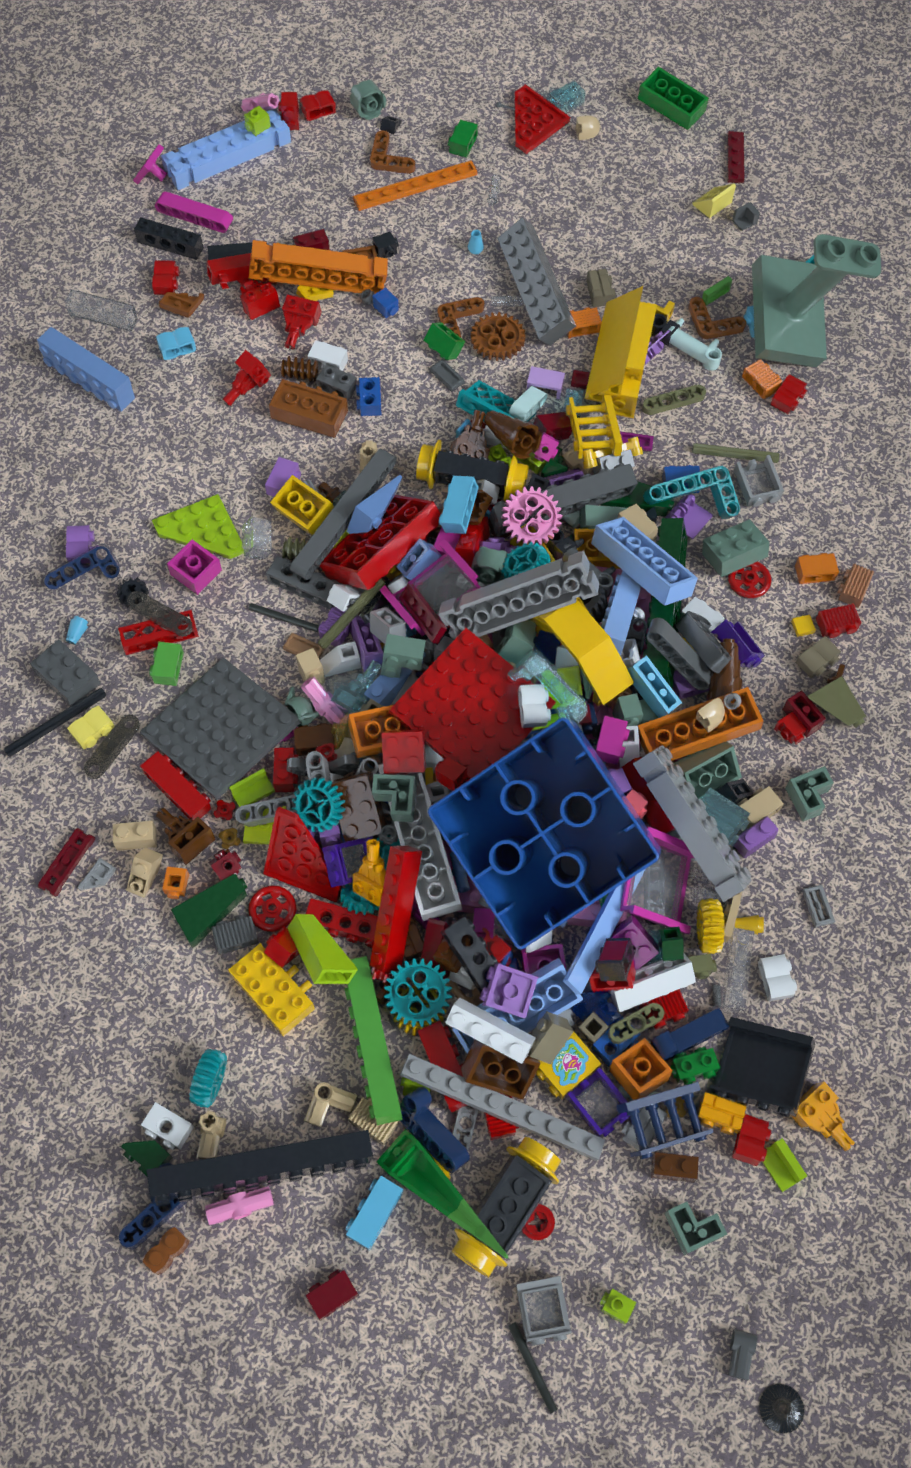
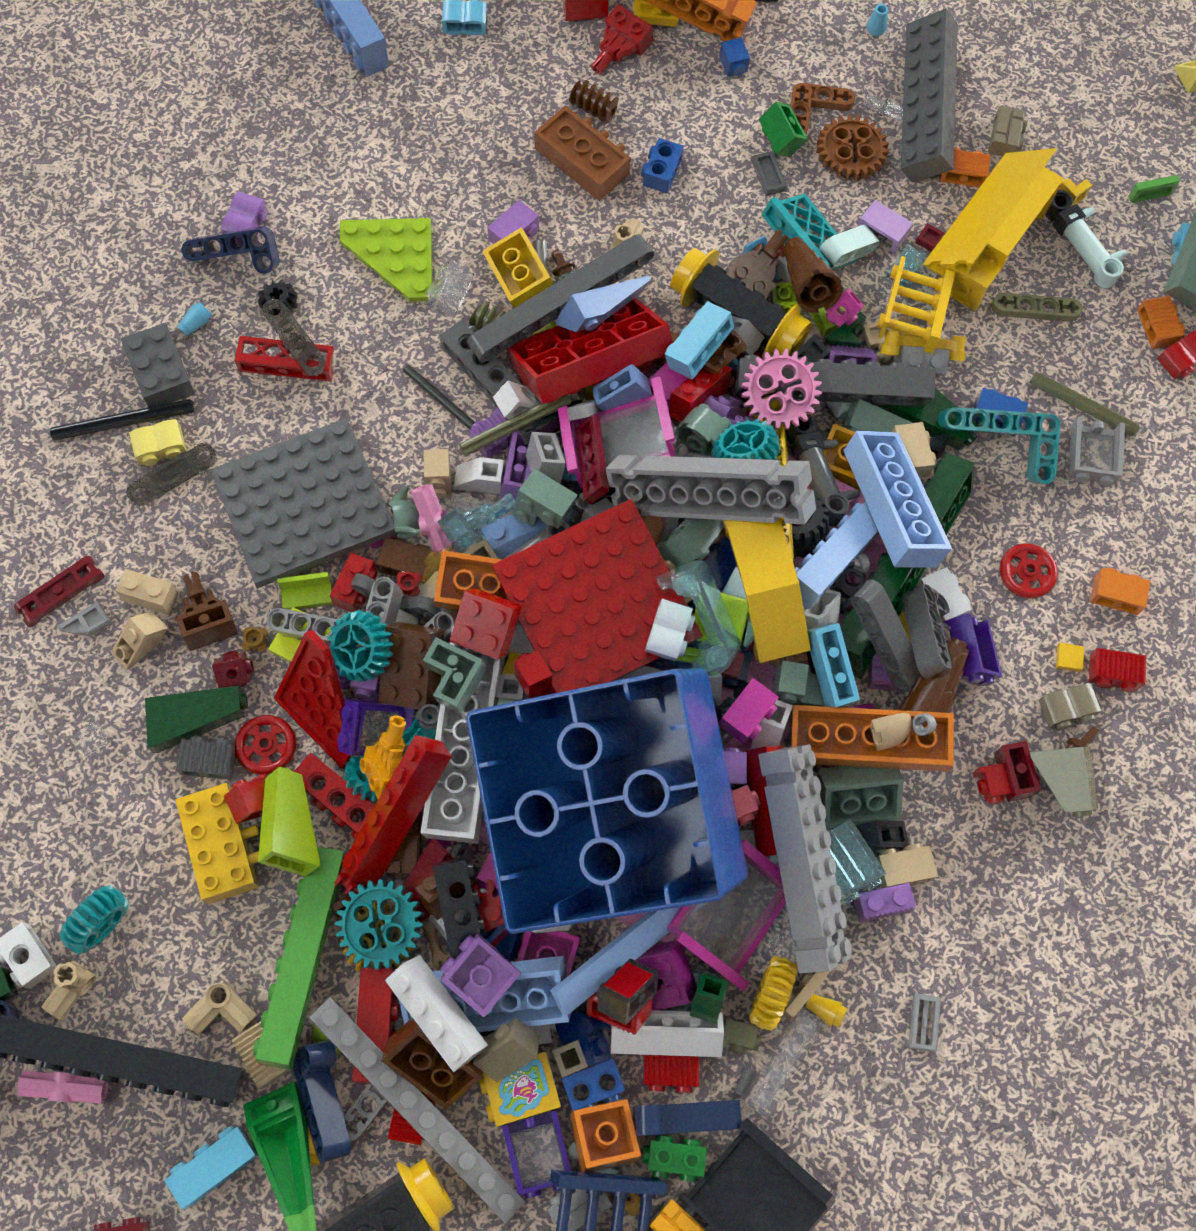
camera: 20 degrees right, 5 degrees up
(167, 663) = (277, 400): bright green brick -> none
(172, 876) = (167, 659): orange brick -> none
(176, 786) = (220, 553): red brick -> none
(194, 567) = (361, 295): dark pink brick -> none
(228, 814) = (263, 595): red plate -> none
(251, 373) = (529, 87): red brick -> none
(296, 644) = (442, 438): medium nougat tile -> none
(328, 354) = (635, 99): white brick -> none
(335, 380) = (629, 129): flat silver brick -> none
(367, 297) = (714, 41): dark grey plate -> none
(554, 424) = (868, 284): dark red brick -> none
(620, 1025) = (646, 1081): olive beam -> none
(645, 441) = (974, 345): magenta tile -> none
(655, 346) = (1039, 231): medium lavender hinge -> none
(694, 515) = (990, 462): medium lavender hinge -> none
(712, 326) = (1127, 232): dark orange beam -> none
(735, 548) = (1027, 525): sand green brick -> none
(777, 977) = (829, 1092): white brick -> none
(806, 792) = (973, 870): sand green brick -> none
(855, 585) = (1160, 633): nougat brick -> none

